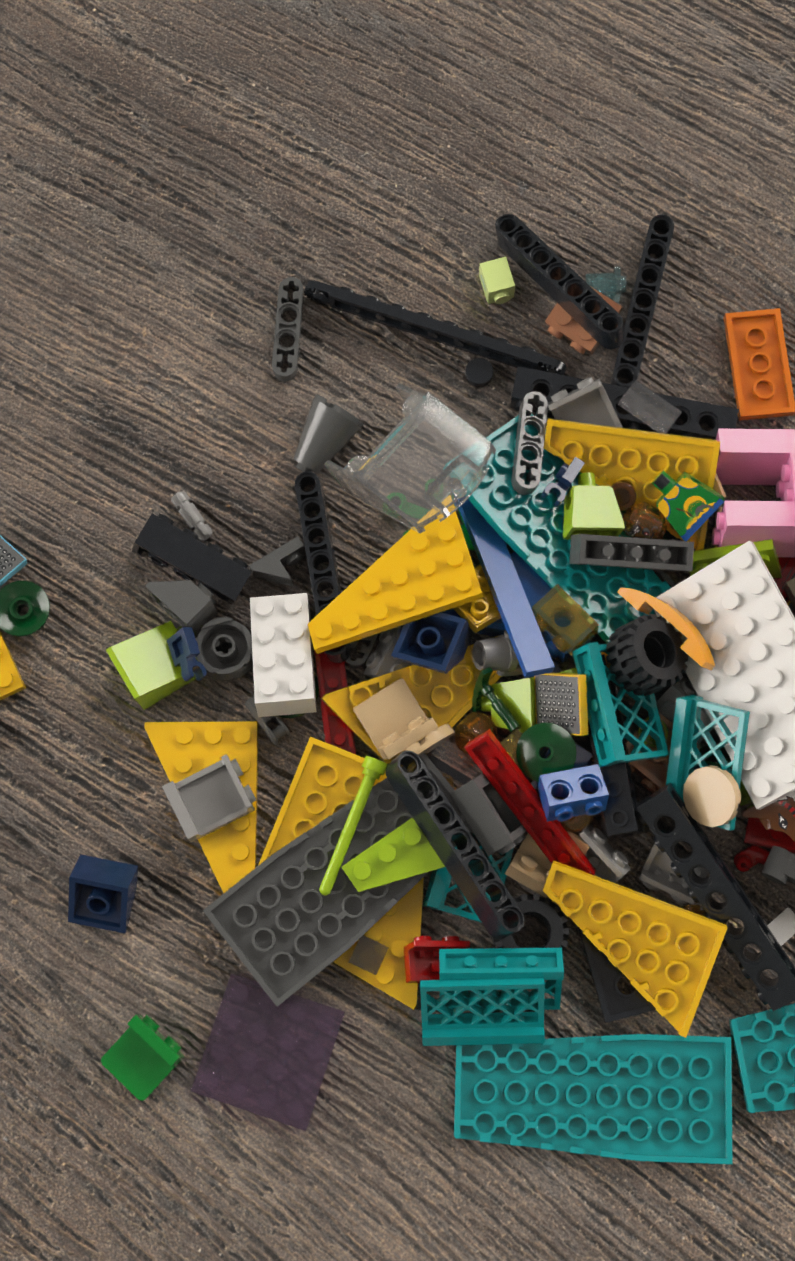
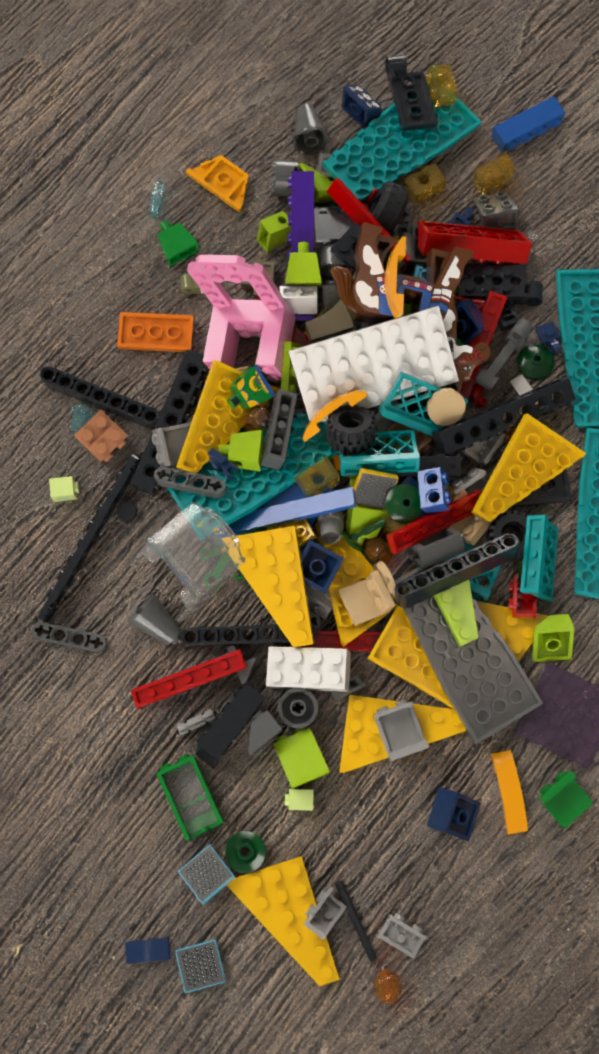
camera: 85 degrees left, 0 degrees up
(87, 522) = (189, 797): none -> clear door
(99, 673) = (299, 799): none -> yellowish green brick
(145, 973) = (510, 792): none -> light orange slope
(183, 652) = (299, 734): dark blue plate -> none
(249, 495) = (189, 678): none -> red tile
(368, 955) = (516, 639): clear smoke tile -> none
(372, 769) = (401, 617): lime piece -> none
(380, 1014) = (553, 639): none -> lime slope
(482, 1025) = (567, 569): teal fence -> none
(560, 281) = (85, 444): black beam -> none
(625, 494) = (235, 427): reddish brown tile -> none
(649, 408) = (177, 403): clear tile -> none

